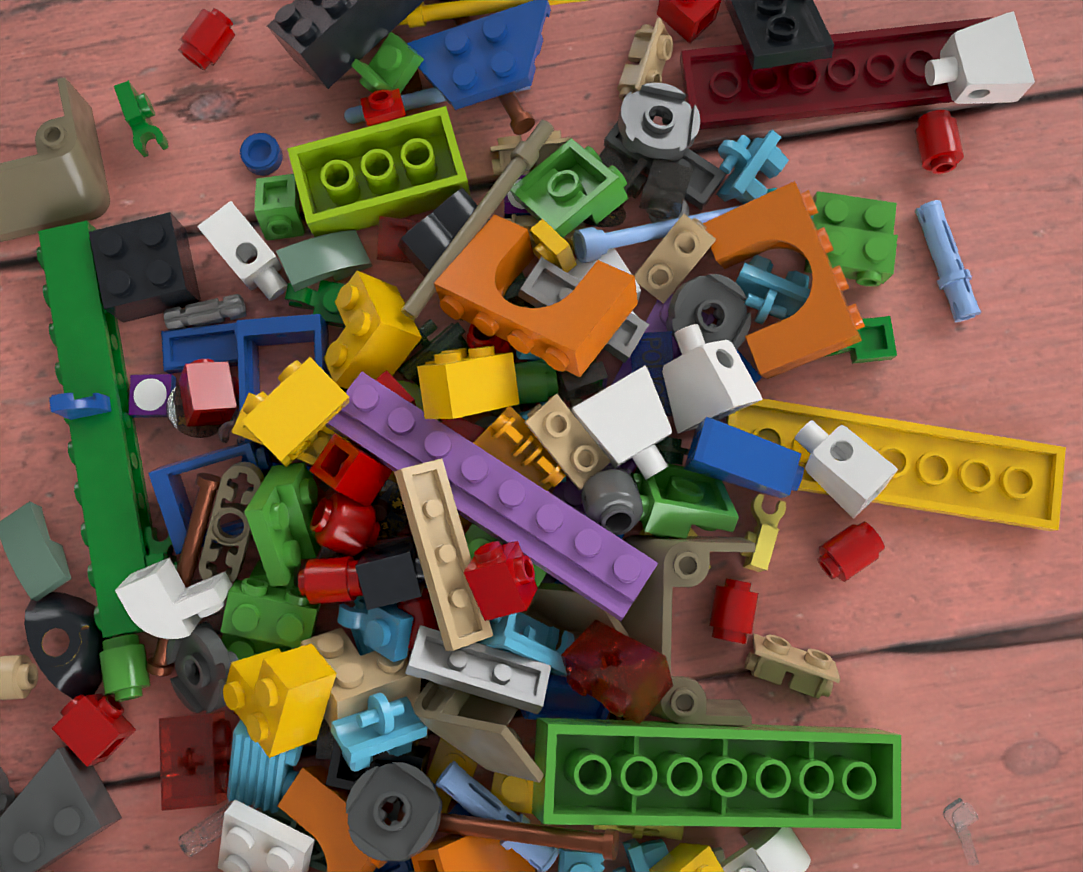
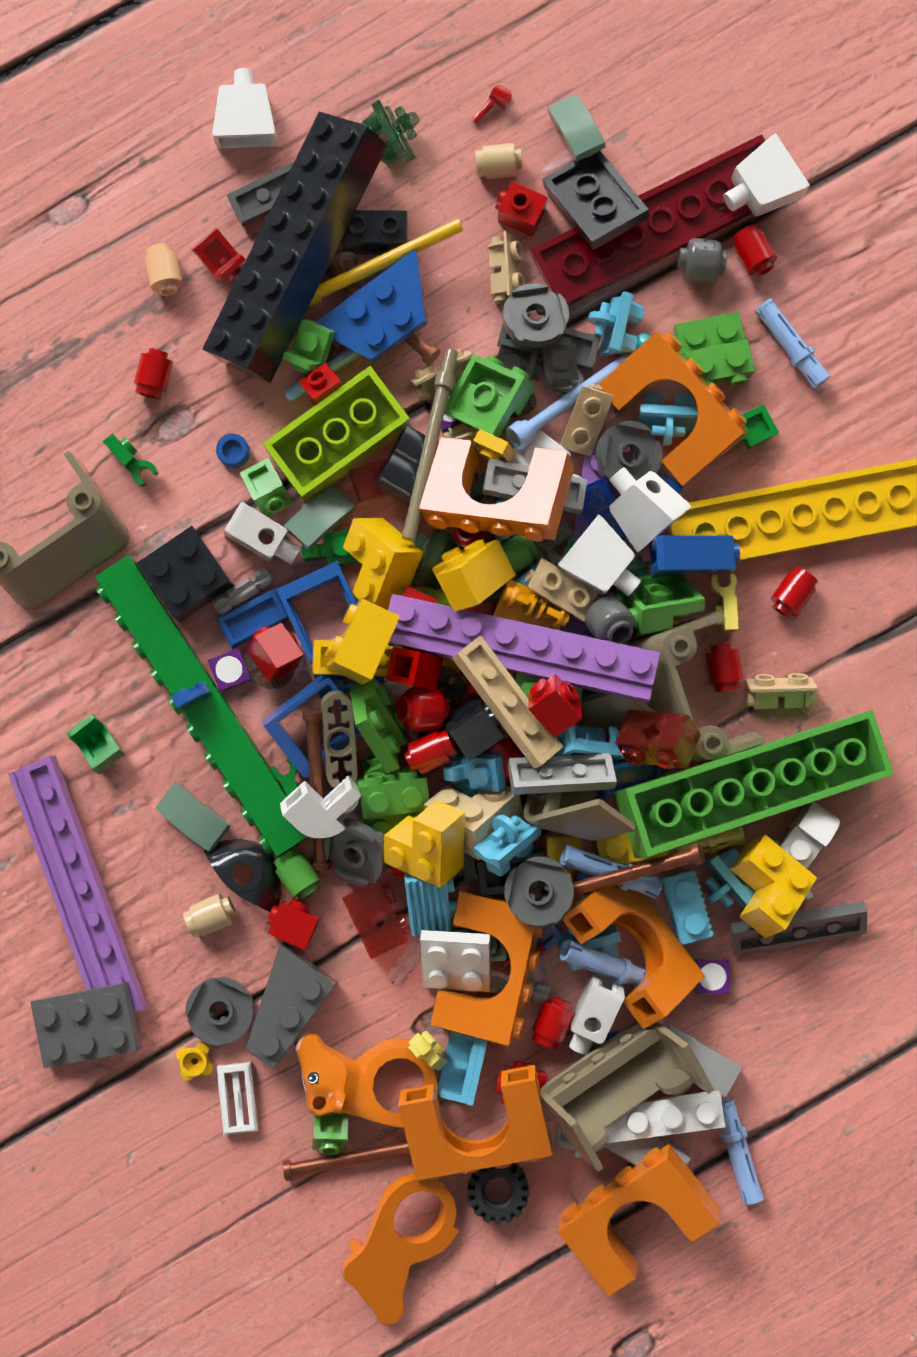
camera: 20 degrees left, 5 degrees up
(856, 476) = (777, 542): white torso -> none
(875, 130) = (702, 260): none -> dark grey head

